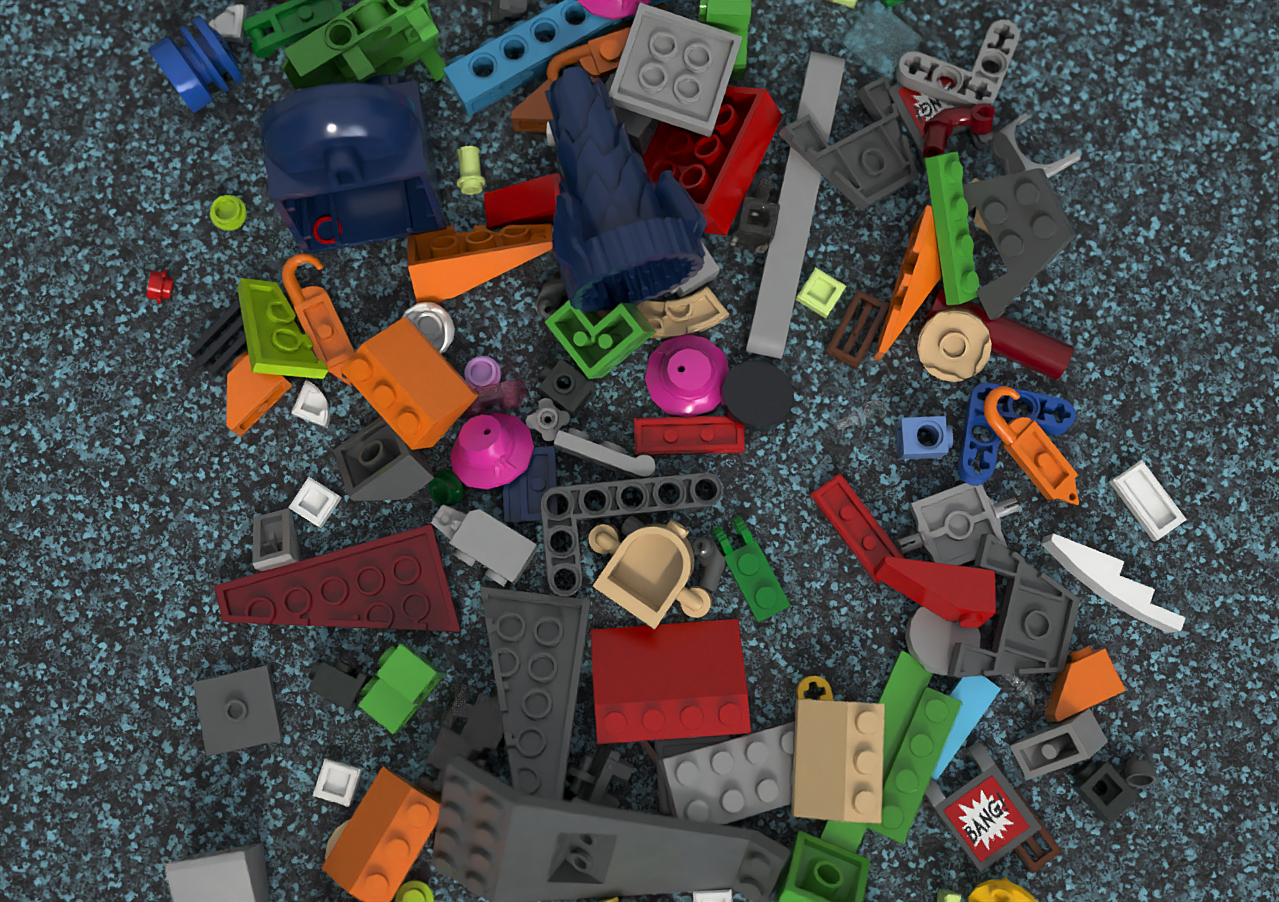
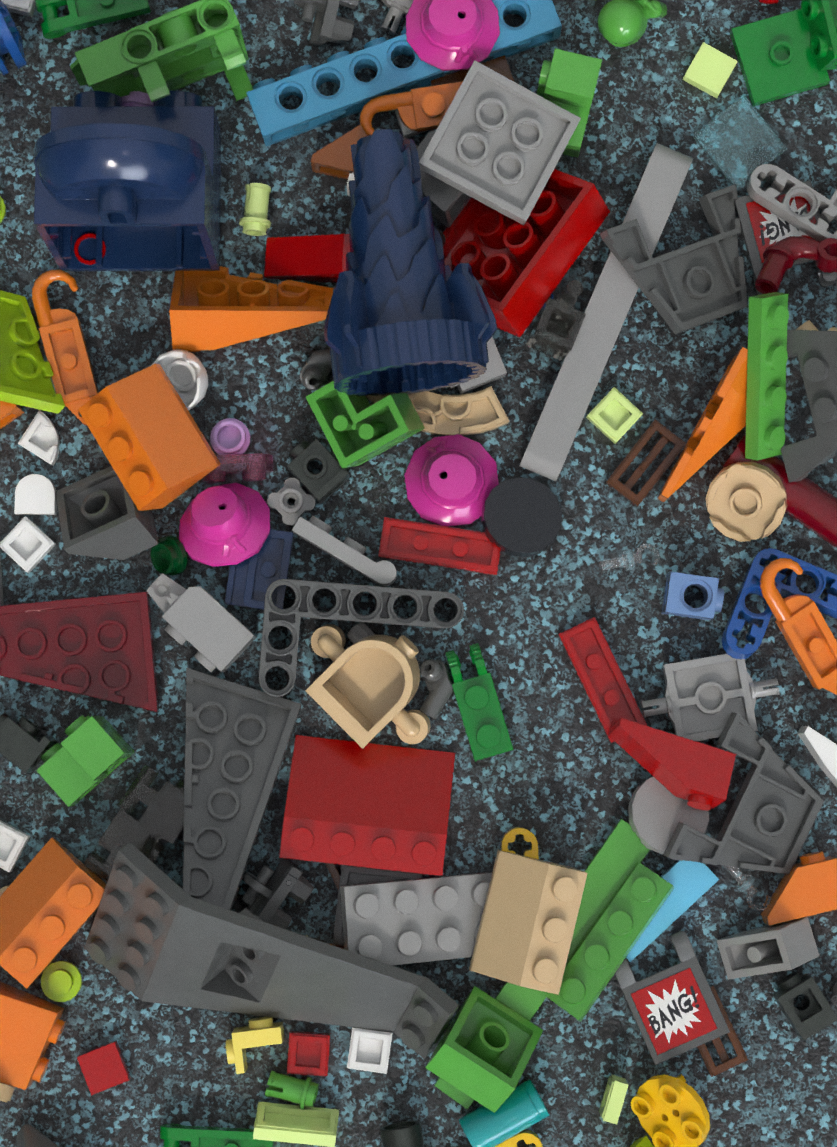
camera: 15 degrees right, 5 degrees up
(315, 457) = (35, 496): none -> white tile

